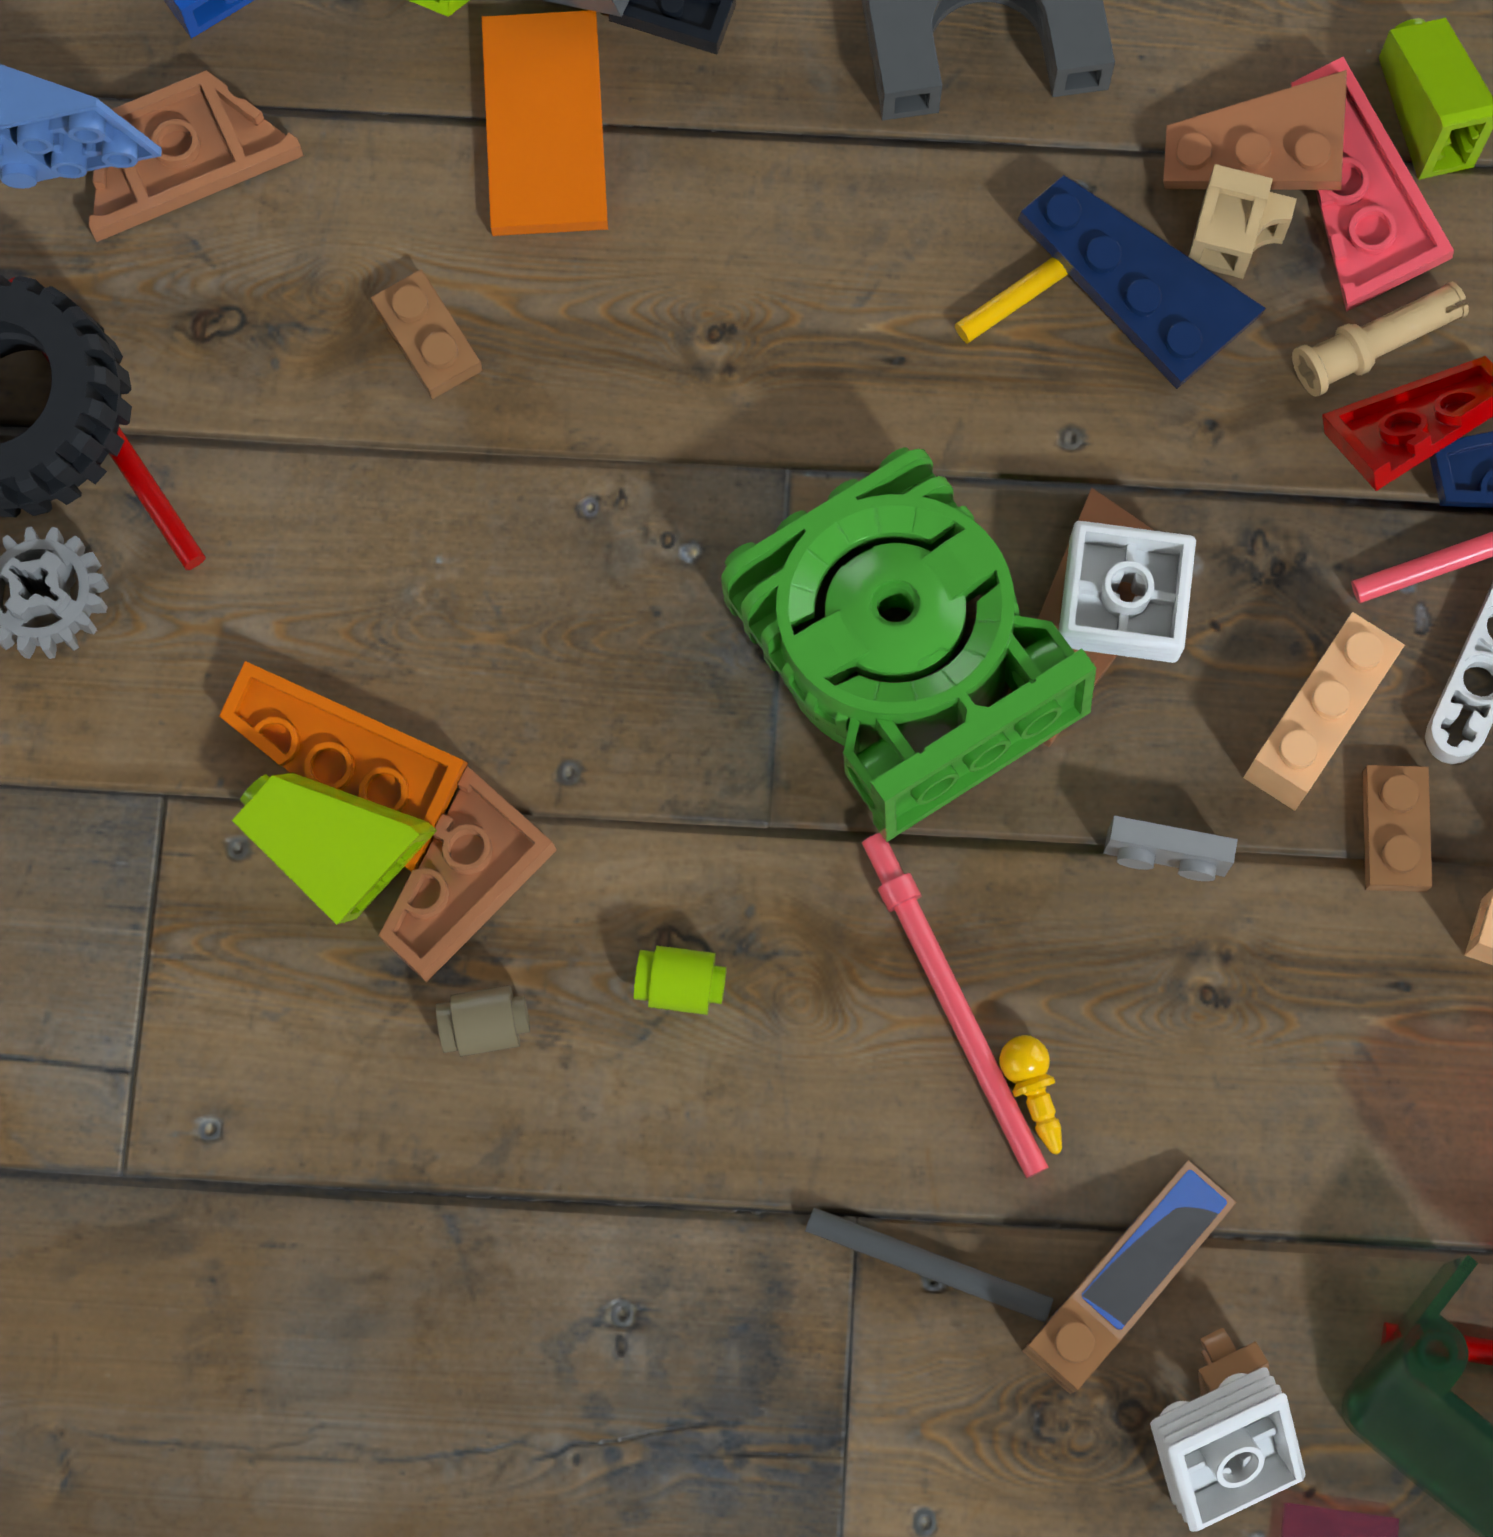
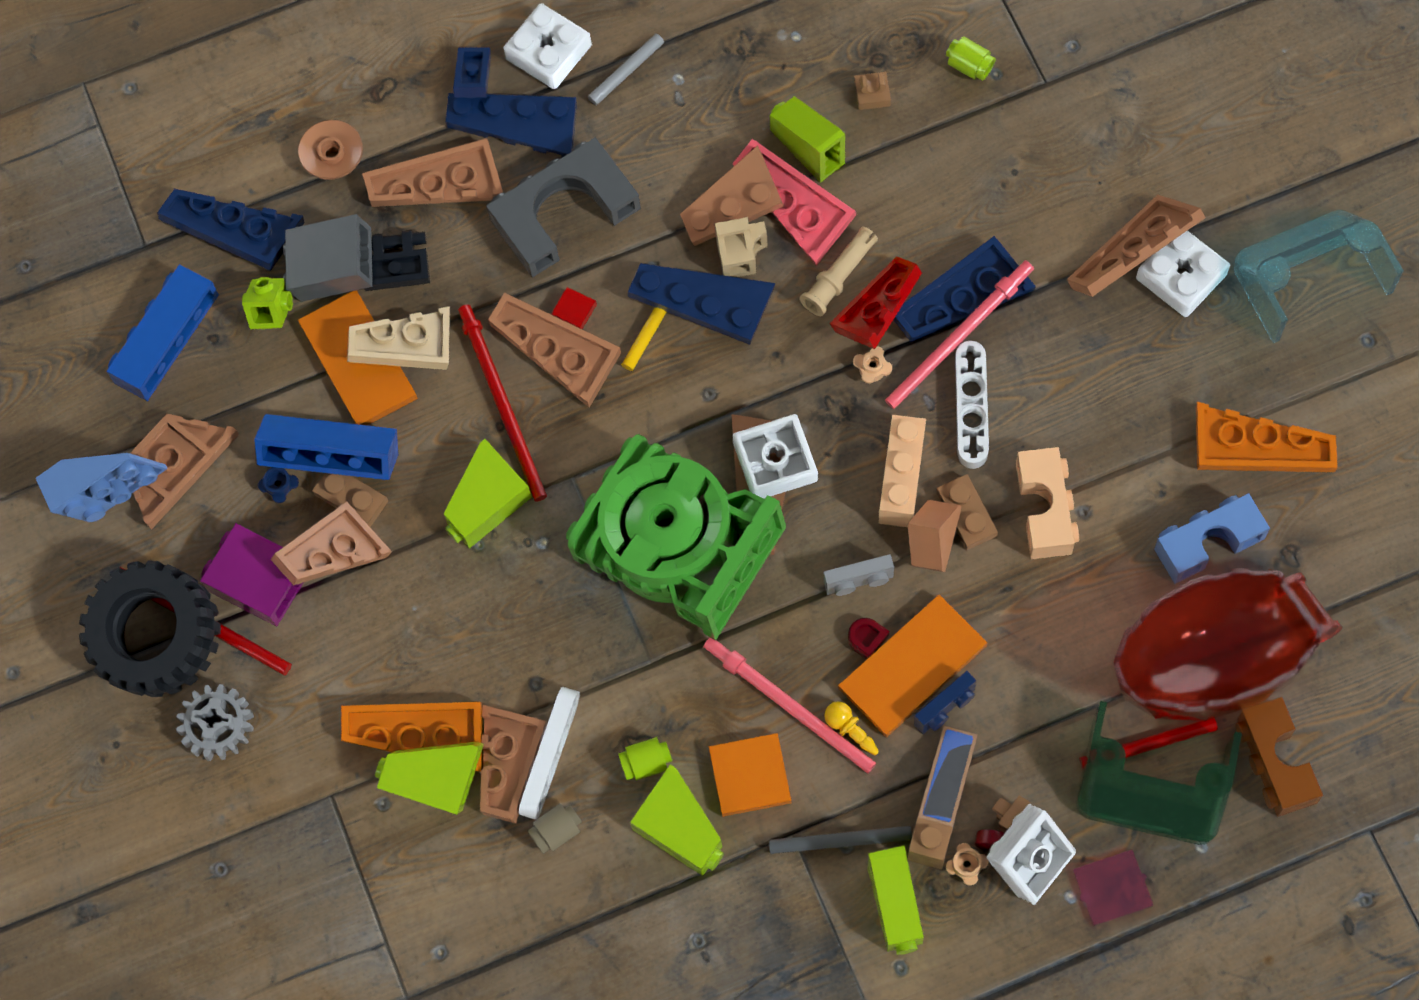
camera: 20 degrees left, 5 degrees down
(217, 388) = (248, 577): none -> magenta brick
(319, 246) = (278, 493): none -> dark blue plate
(350, 399) = (330, 546): none -> nougat wing
(425, 238) = (326, 447): none -> blue brick
(533, 895) = (549, 753): none -> white beam
(626, 128) = (406, 342): none -> tan wing
(632, 434) = (484, 496): none -> lime slope
(680, 1111) = (678, 824): none -> lime slope
(747, 158) = (473, 329): none -> red bar
(835, 1086) = (750, 775): none -> orange tile
(870, 254) = (561, 349): none -> nougat wing
(922, 201) = (574, 308): none -> red tile
(968, 1414) = (895, 900): none -> lime slope
(1133, 953) = (866, 636): none -> dark red tile
(1133, 1410) = (957, 867): none -> light nougat plate
(1170, 1385) = (986, 838): none -> dark red tile
(1185, 1037) = (912, 665): none -> orange tile
(1236, 1121) = (935, 712): none -> dark blue plate
(1323, 839) = (932, 534): none -> nougat slope
(1347, 527) = (872, 374): none -> light nougat plate

